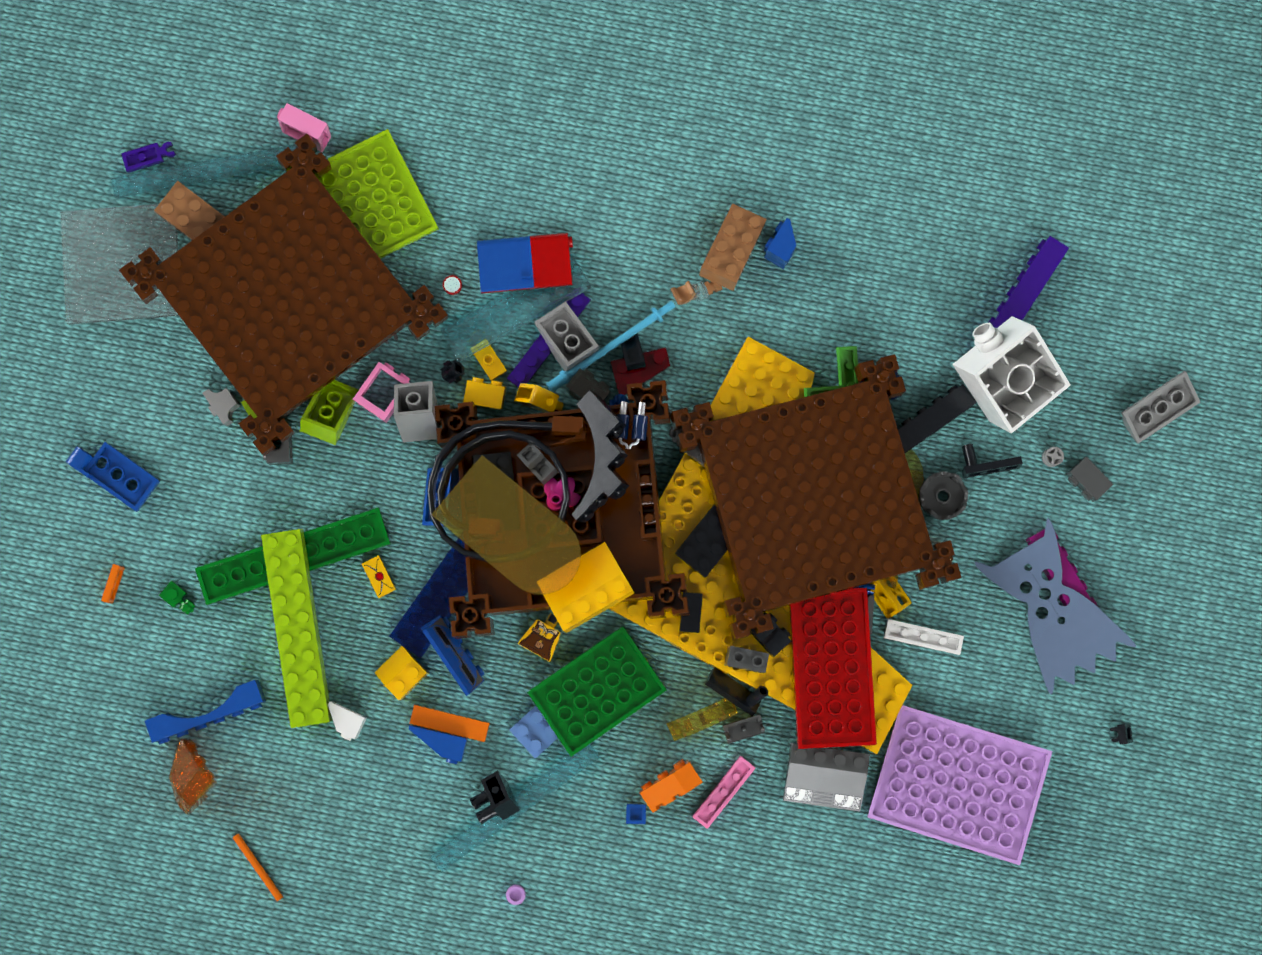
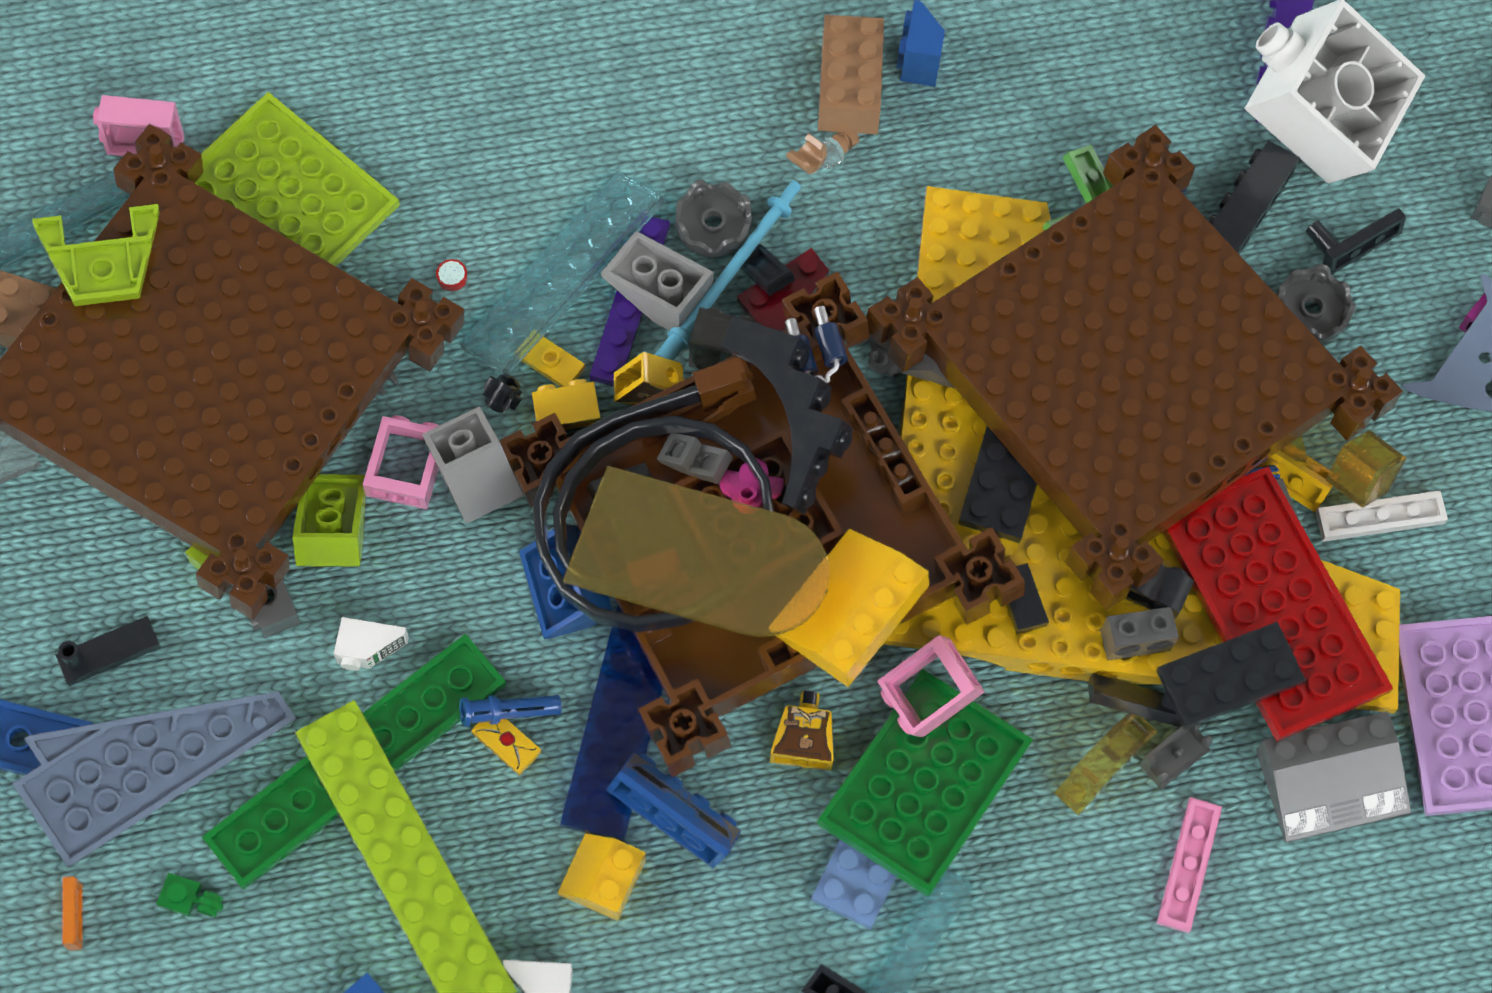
camera: 25 degrees left, 15 degrees down
(163, 515) = (120, 771): none -> sand blue wing
(181, 440) = (106, 651): none -> black piece
(222, 404) = (154, 571): light grey brick -> none
(246, 221) = (104, 268): none -> lime wing
(321, 492) = (366, 643): none -> white slope
(375, 558) = (494, 709): none -> blue pin
(443, 743) = (716, 959): blue slope -> none
(449, 723) = (711, 925): orange tile -> none
(524, 262) = (551, 201): door -> none
(620, 296) = (718, 201): none -> dark grey plate
(635, 641) = (957, 668): none -> bright pink window
(636, 814) = (1068, 951): blue plate -> none
(670, 784) = (1107, 876): orange brick -> none
(786, 704) = (1230, 675): none -> black plate
(924, 608) = (1365, 468): none -> clear yellow head
(1055, 454) = (1445, 190): light grey wheel -> none

